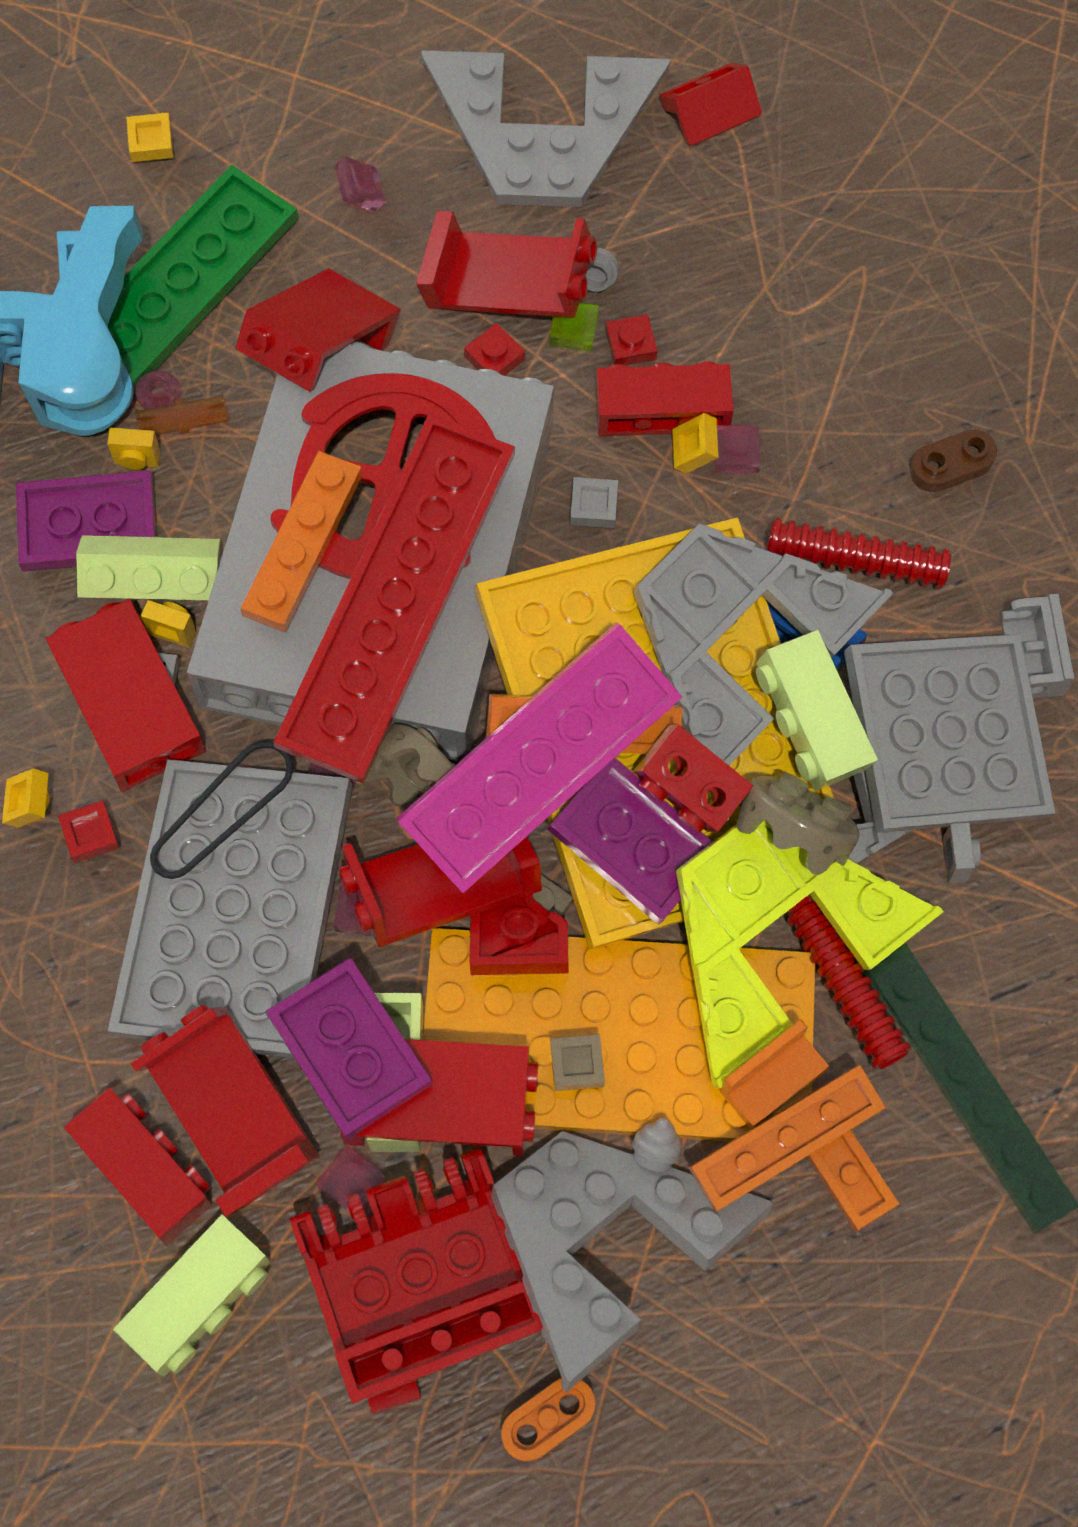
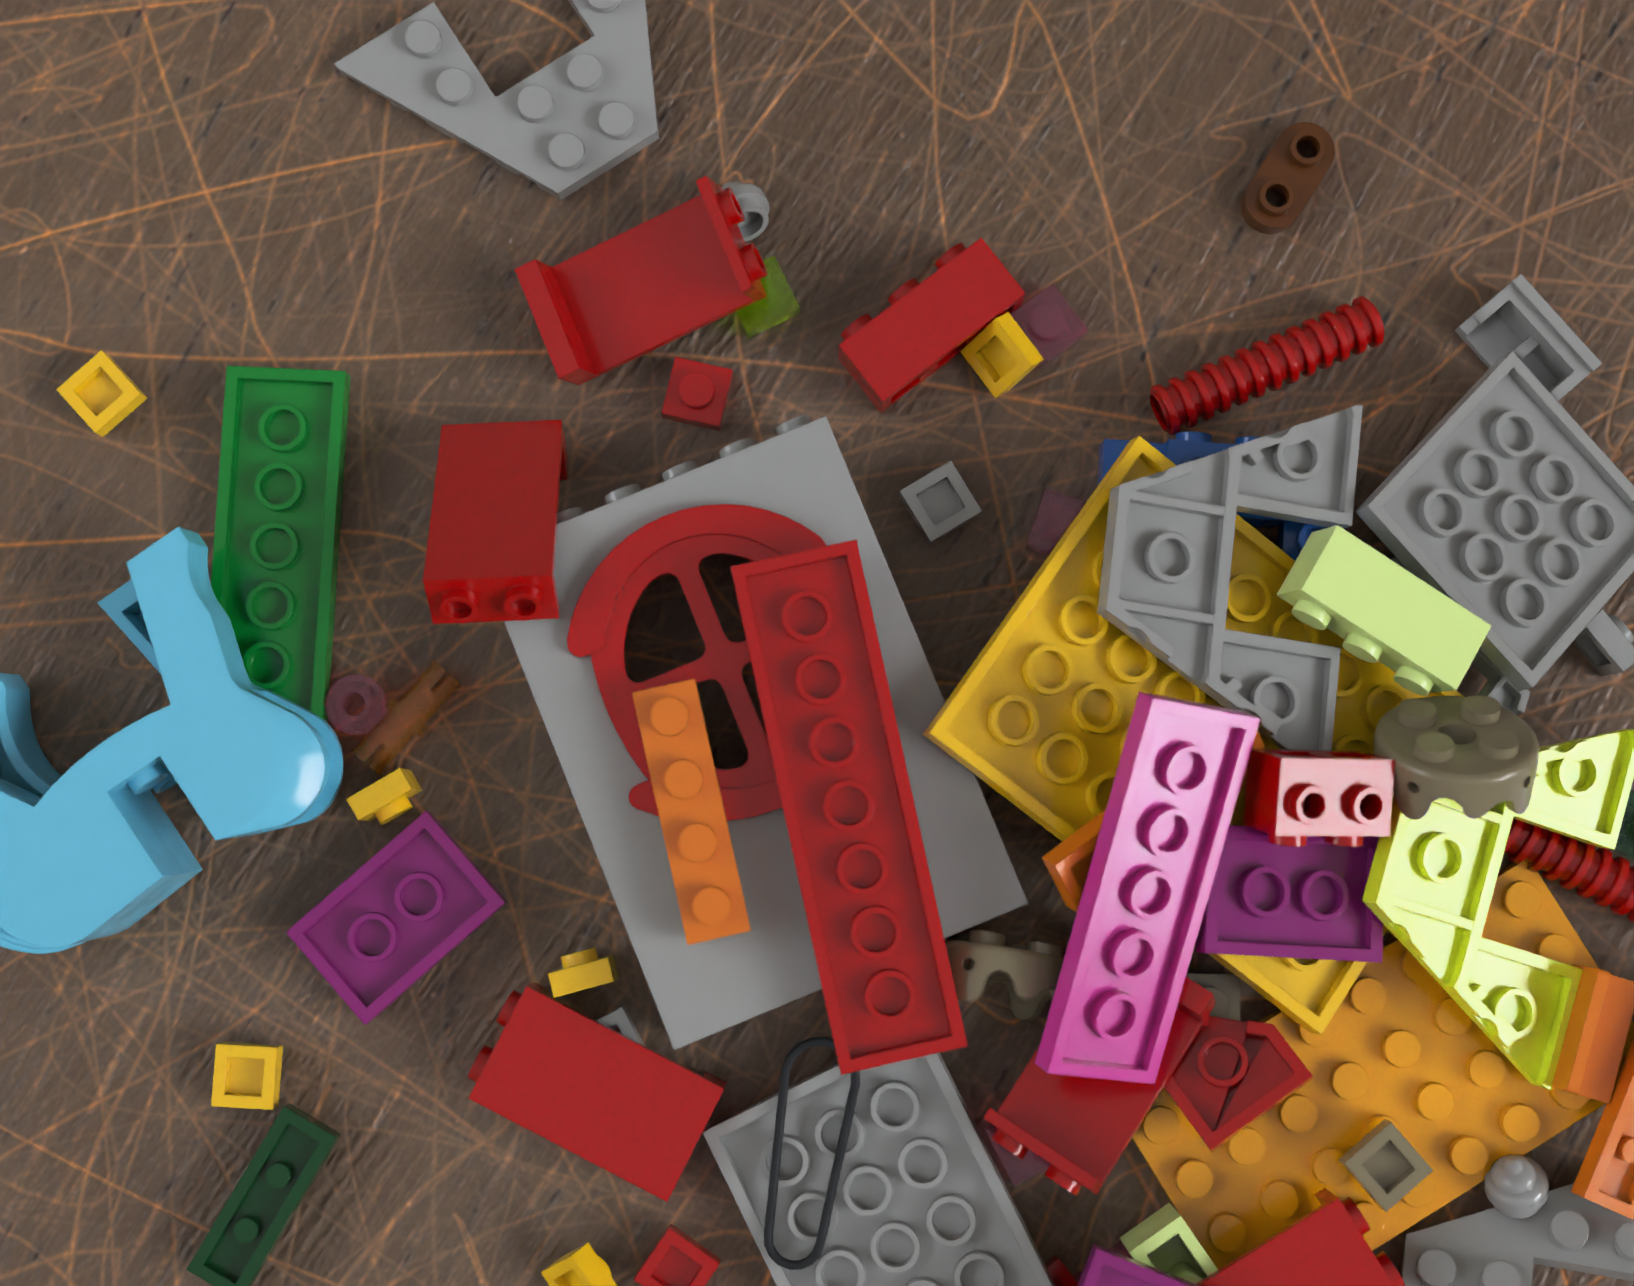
camera: 35 degrees left, 15 degrees up
(146, 567) = (517, 934): yellowish green brick -> none
(359, 184) = (392, 288): clear pink plate -> none
(631, 340) = (837, 272): red plate -> none

